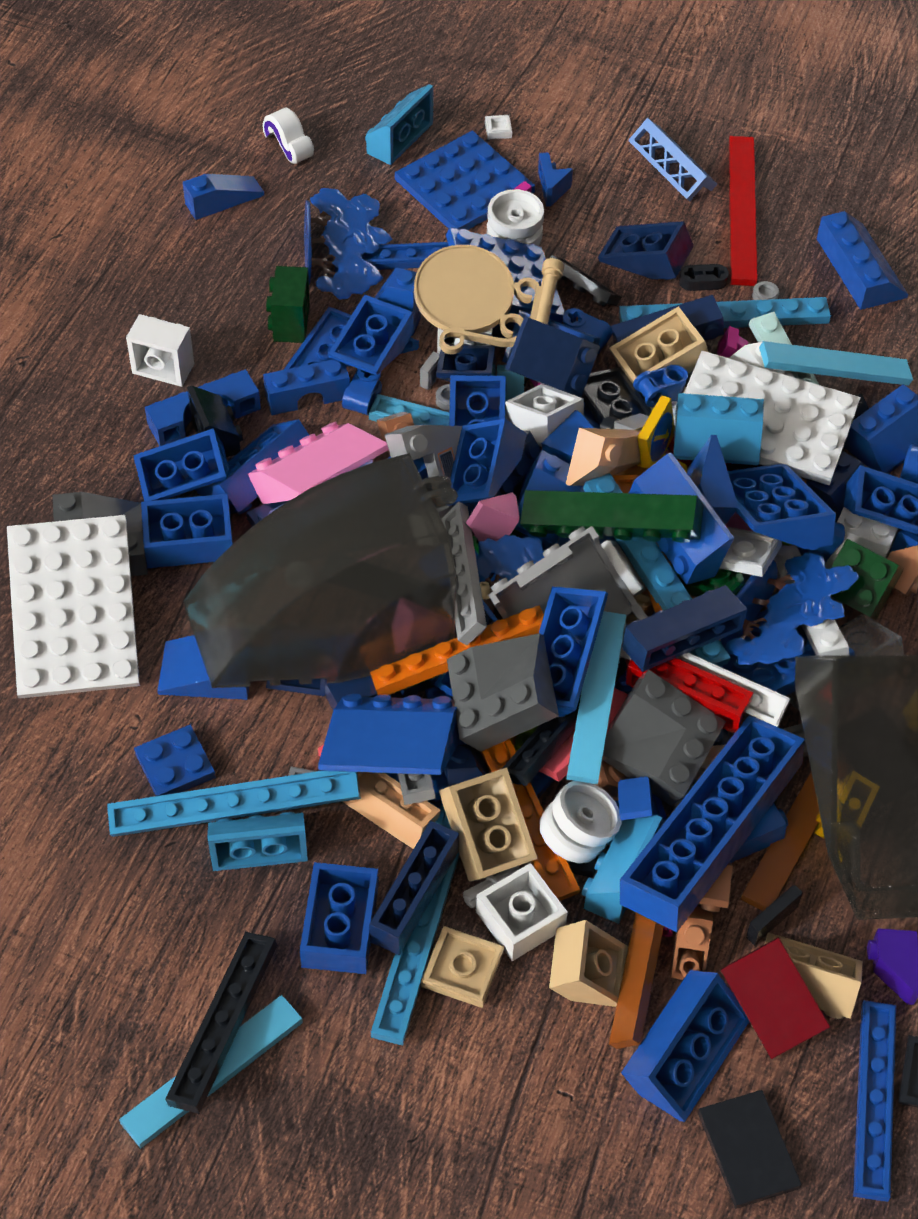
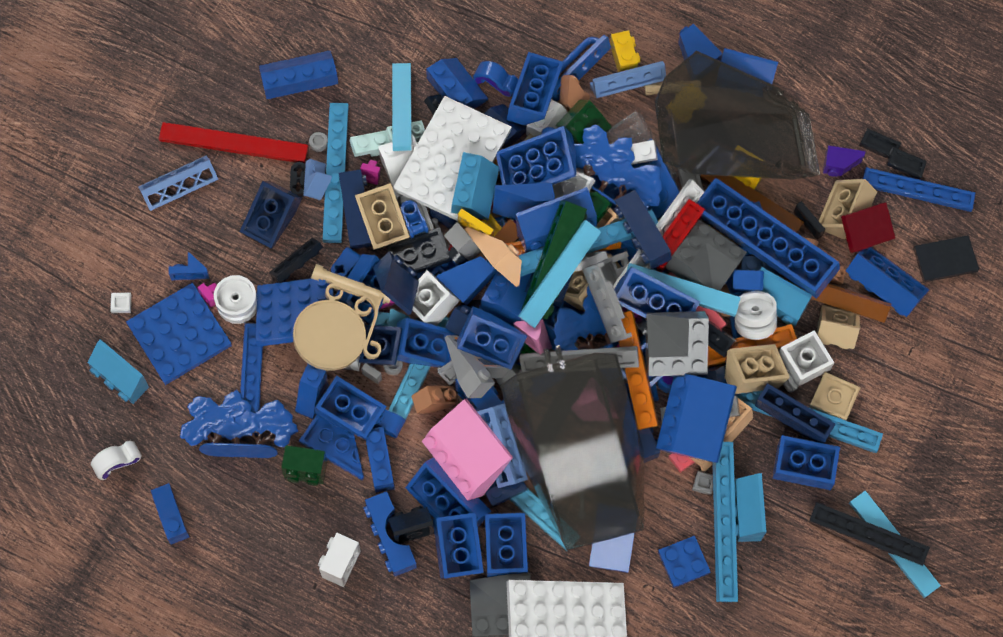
camera: 85 degrees left, 15 degrees up
(579, 512) = (559, 274): none -> medium azure tile
(704, 285) = (315, 179): none -> medium blue slope

